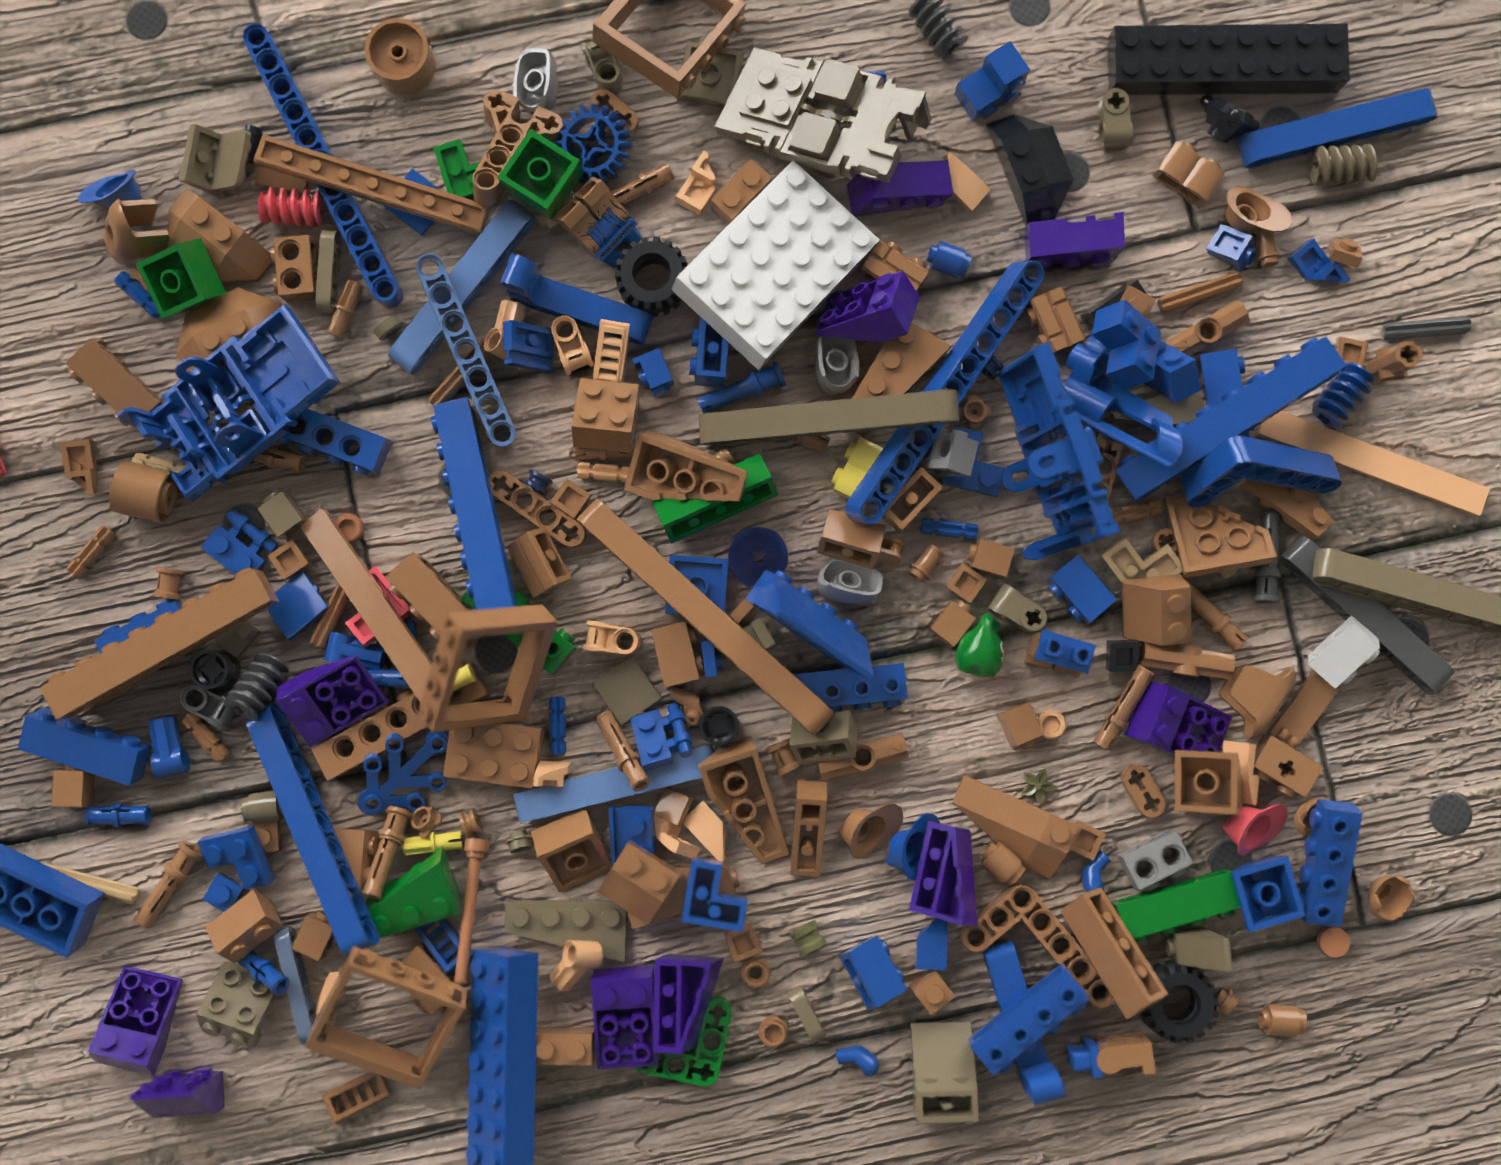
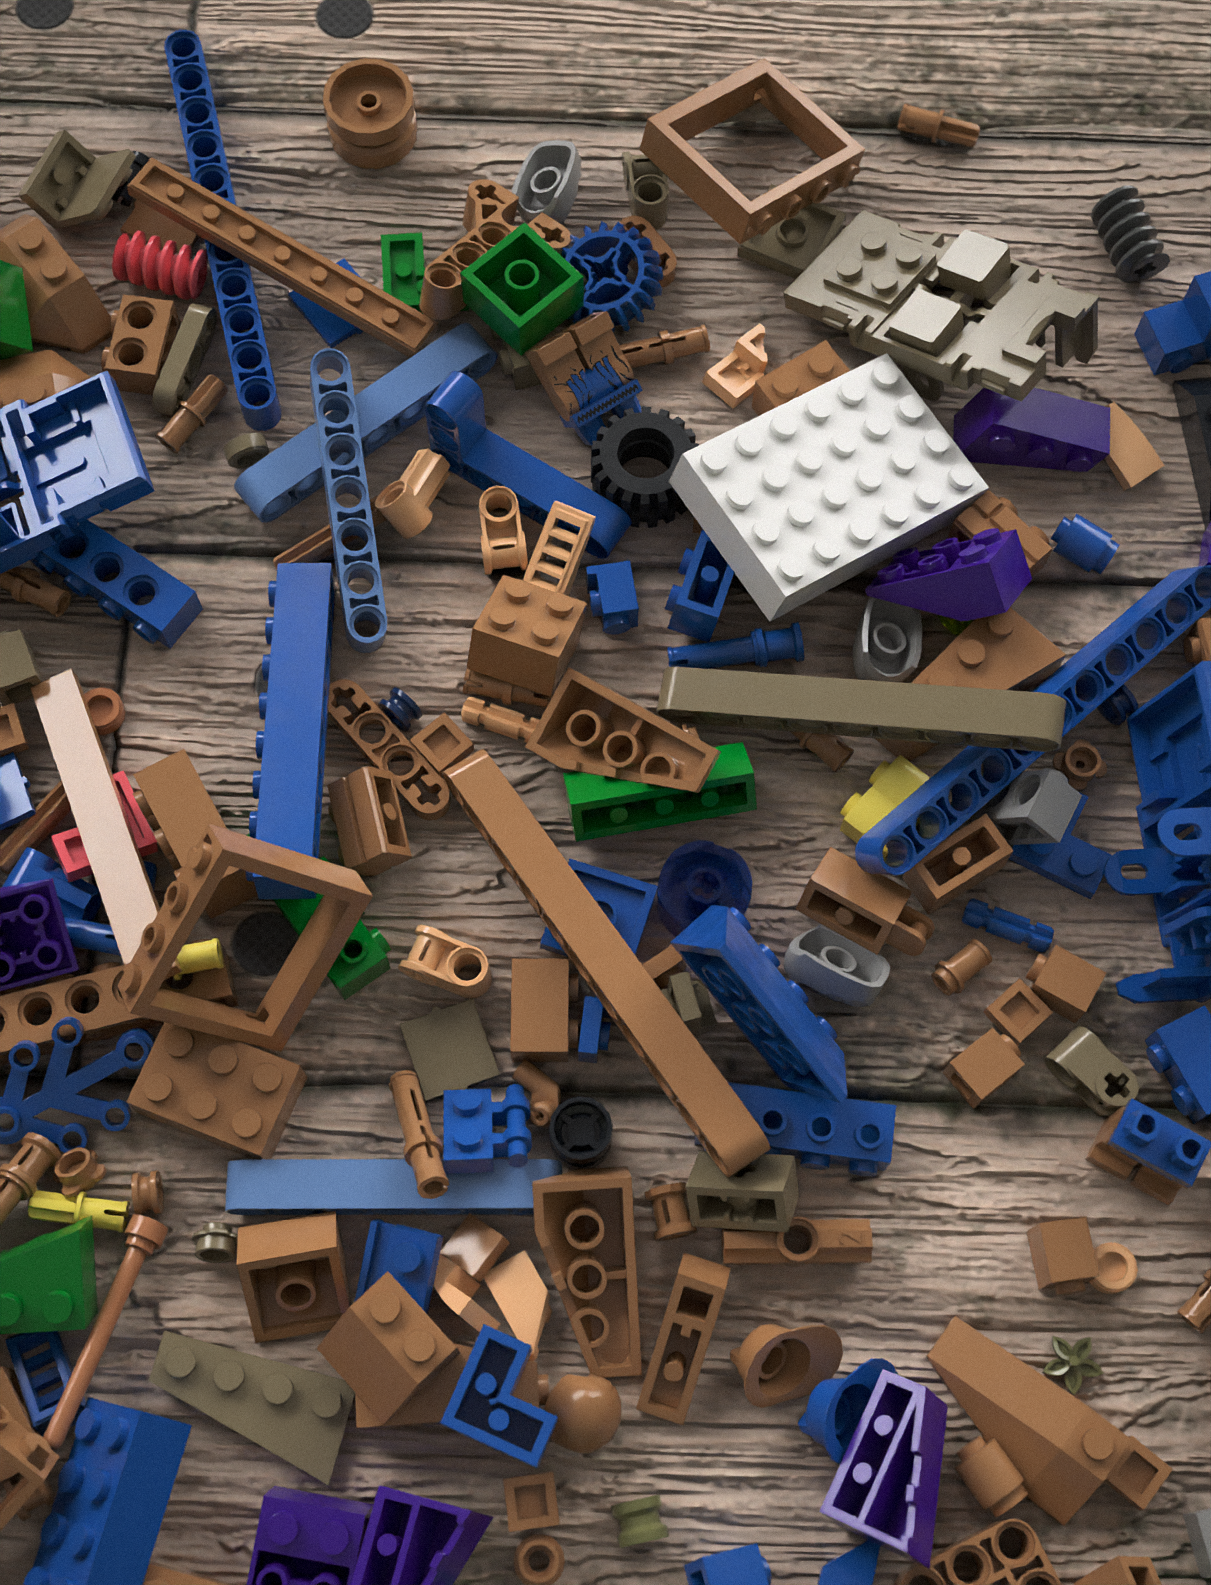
camera: 10 degrees right, 15 degrees down
(528, 346) = (440, 516): blue plate -> none
(551, 773) = (296, 1143): light nougat slope -> none
(557, 725) = (327, 1076): blue axle -> none
(577, 958) = (253, 1453): light nougat piece -> none
(761, 886) = (586, 1412): none -> medium nougat hair
(981, 649) = (1023, 1113): green piece -> none
(1092, 872) = (1137, 1530): blue arm -> none

